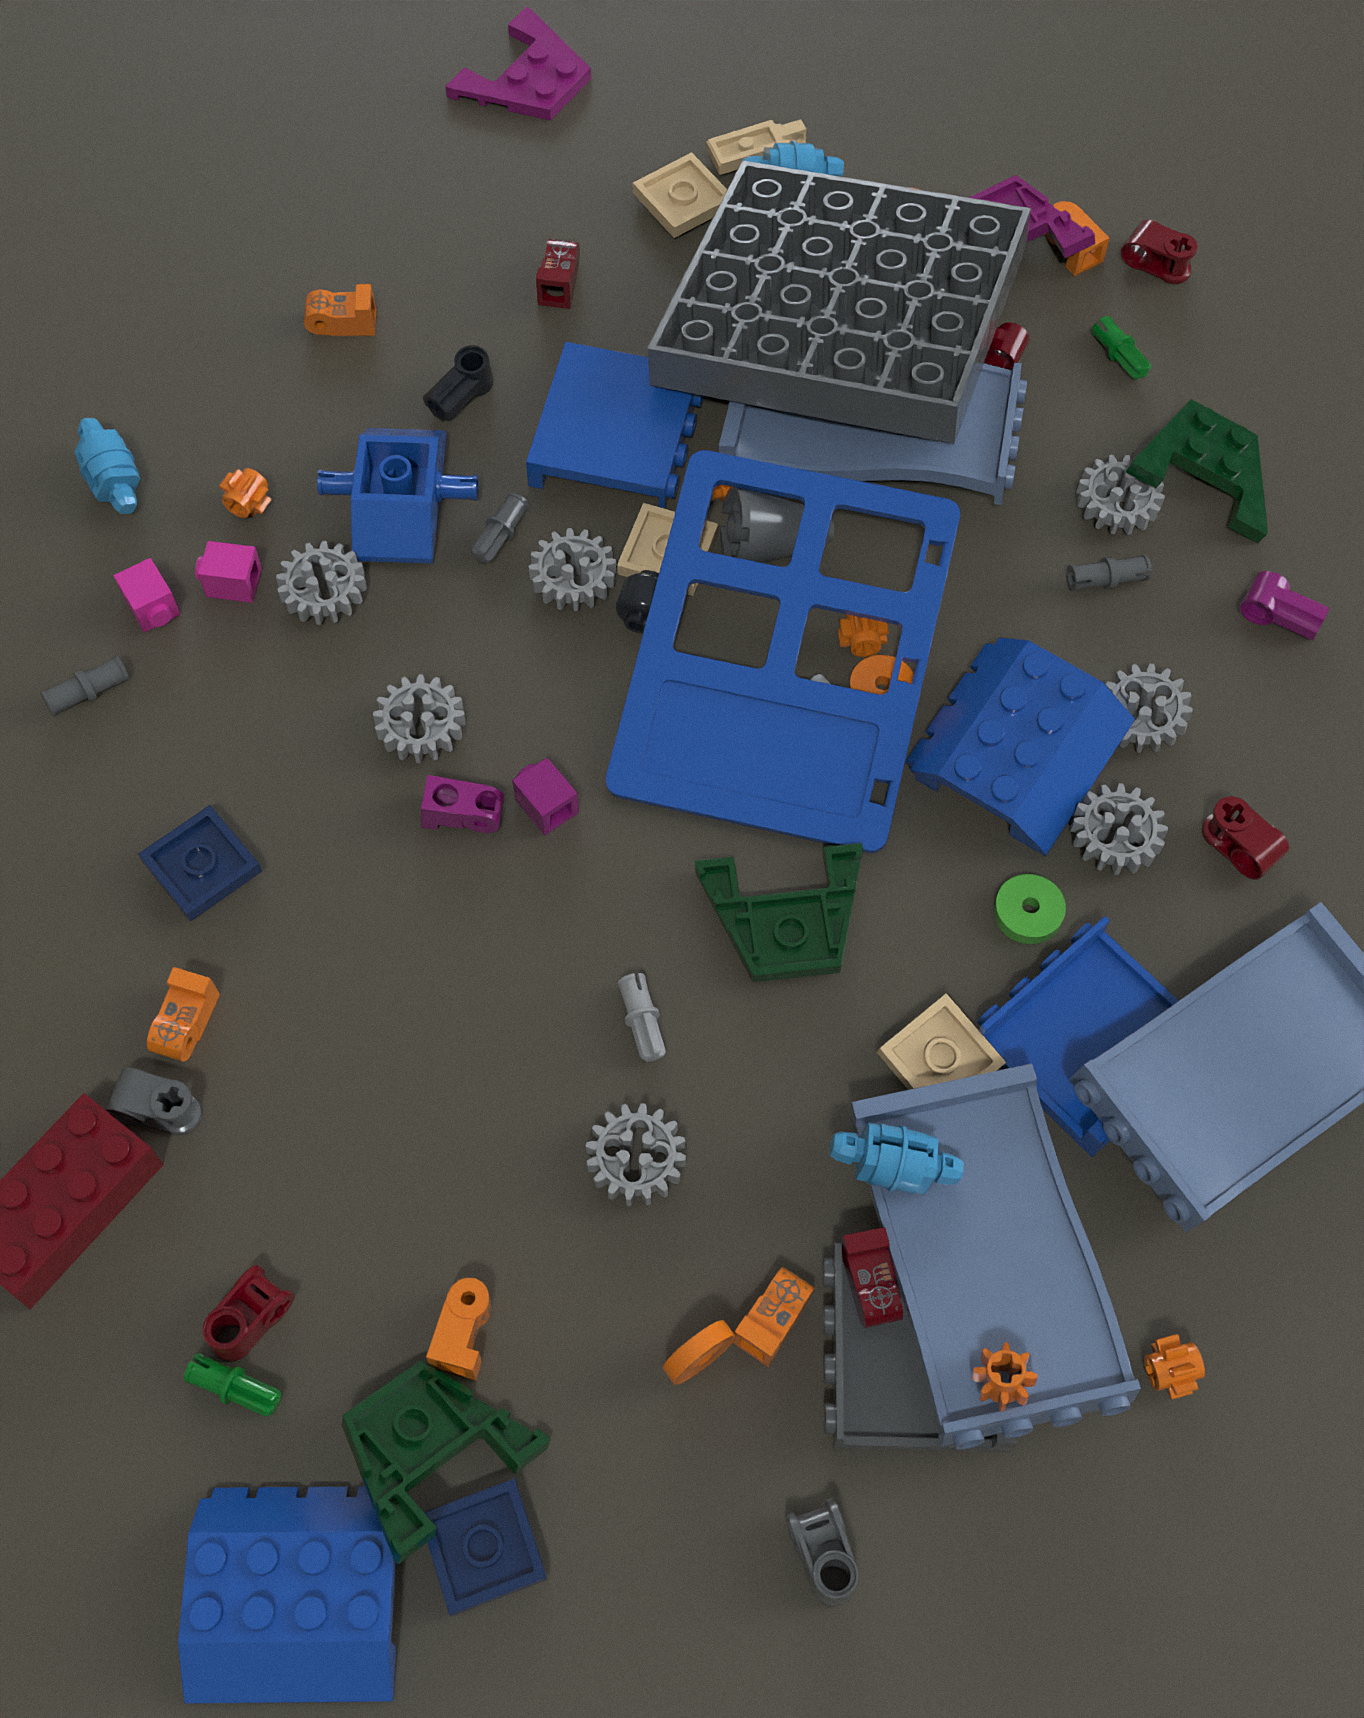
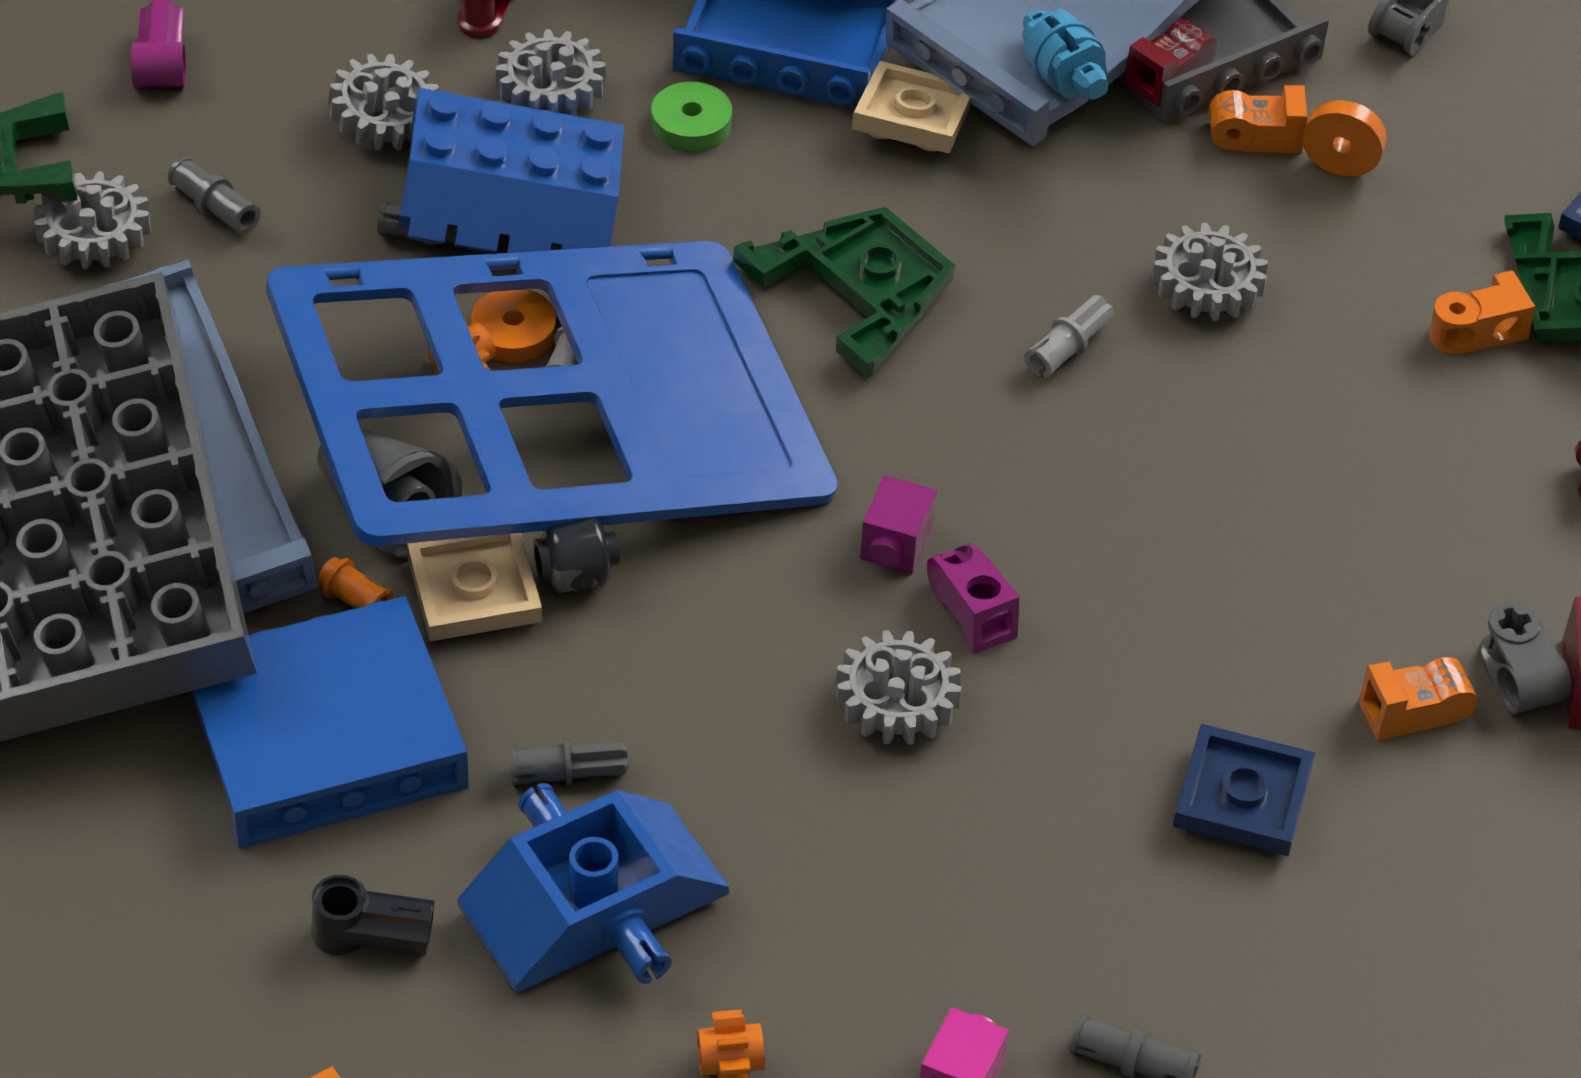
camera: 125 degrees left, 15 degrees down
(229, 571) = (857, 995): dark pink brick -> none
(341, 590) = (762, 896): light grey gear -> none
(551, 562) = (598, 664): light grey gear -> none
(560, 270) = (86, 920): dark red leg -> none

